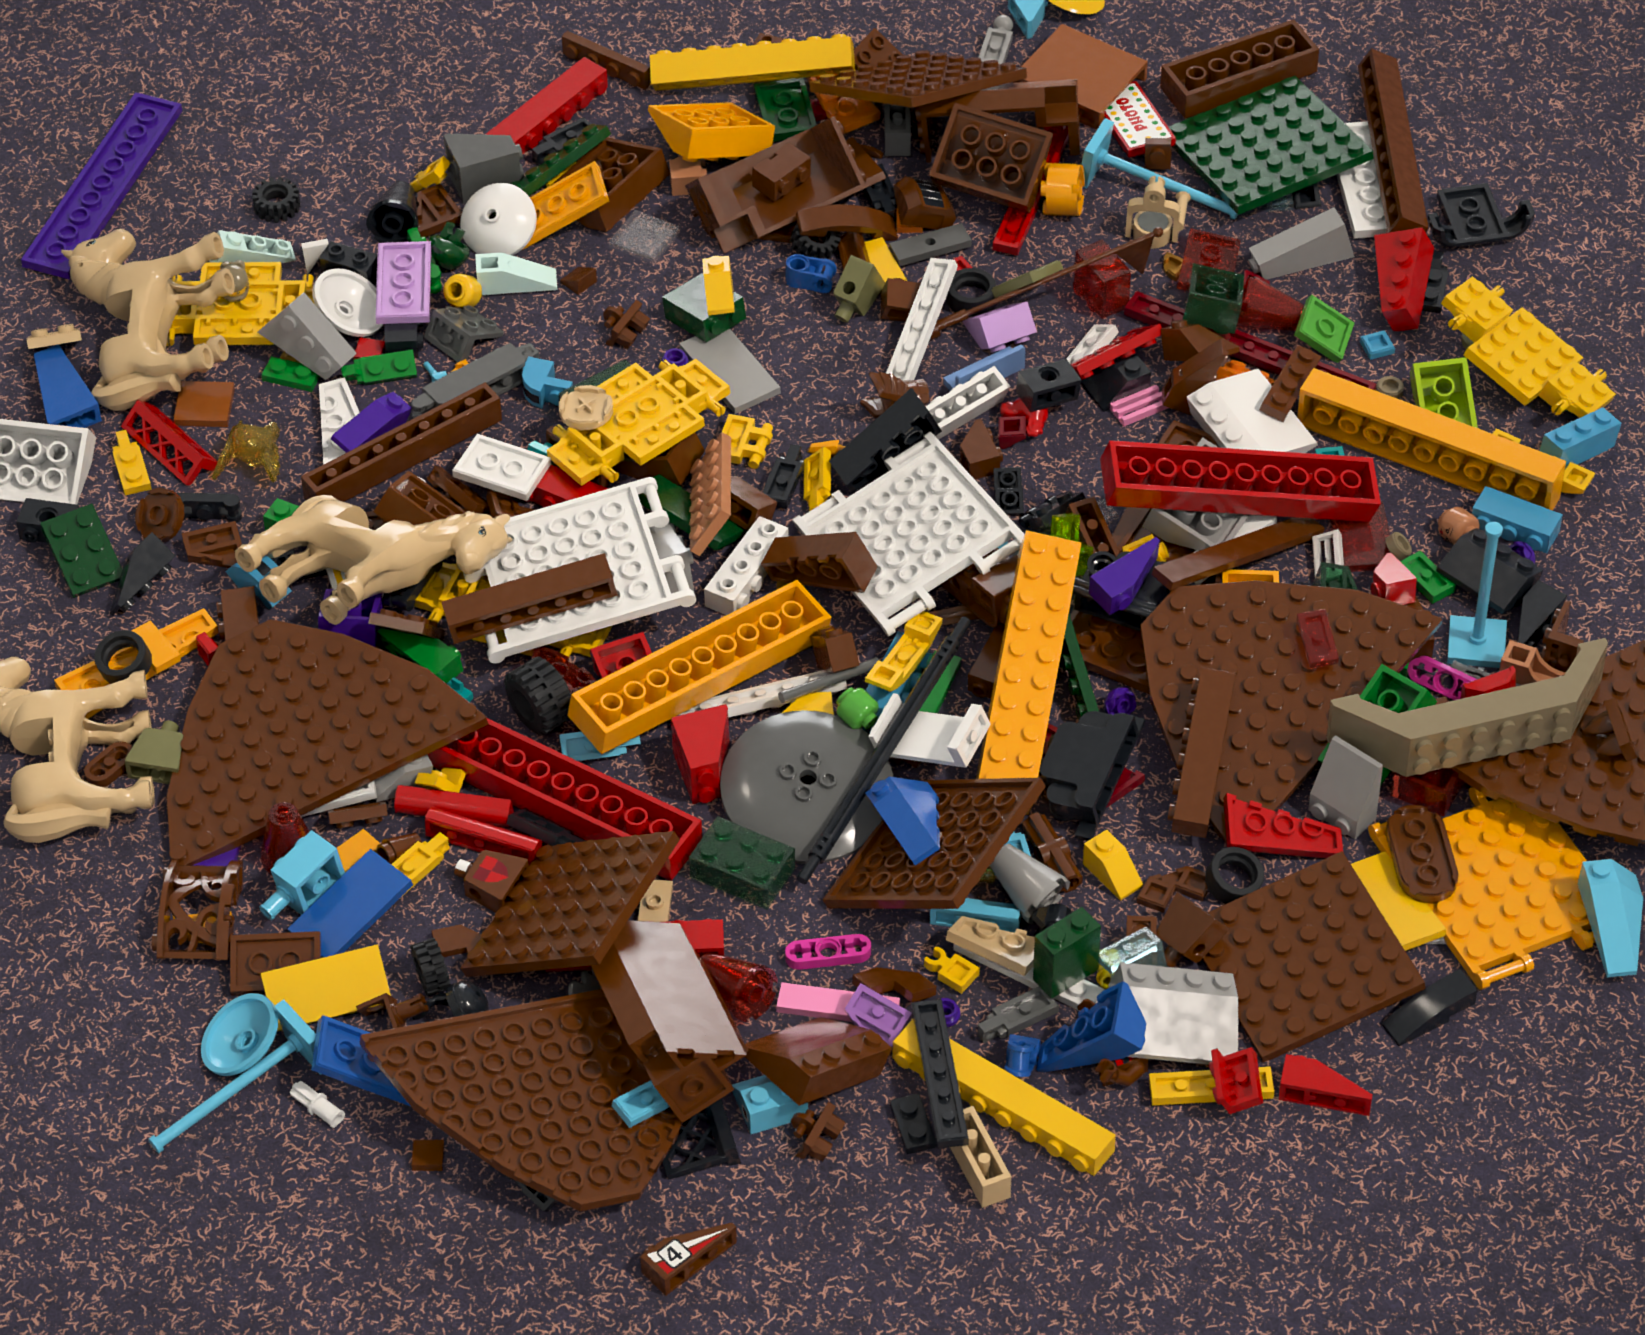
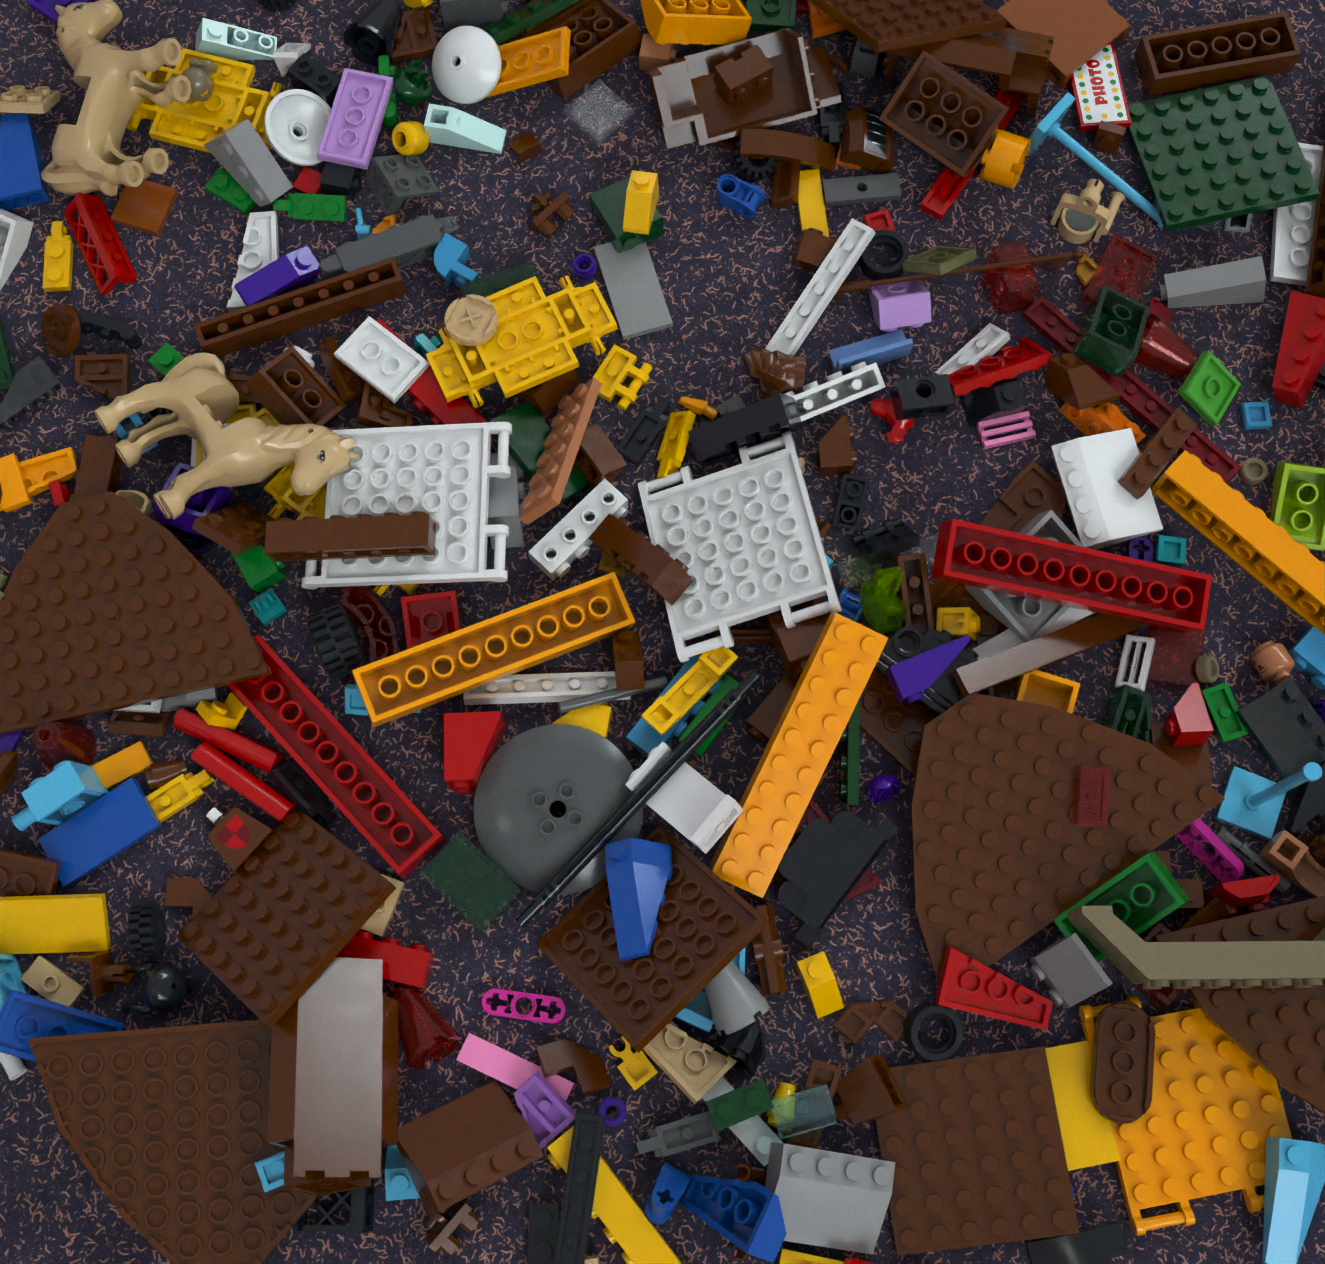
camera: 15 degrees right, 25 degrees up
(253, 446) = (166, 272): clear yellow helmet -> none
(857, 288) = (774, 230): olive torso -> none
(857, 708) = (627, 741): bright green head -> none
(1011, 430) = (874, 432): dark red slope -> none
(1193, 375) = (1066, 423): reddish brown slope -> none
(1203, 752) = (941, 894): reddish brown brick -> none

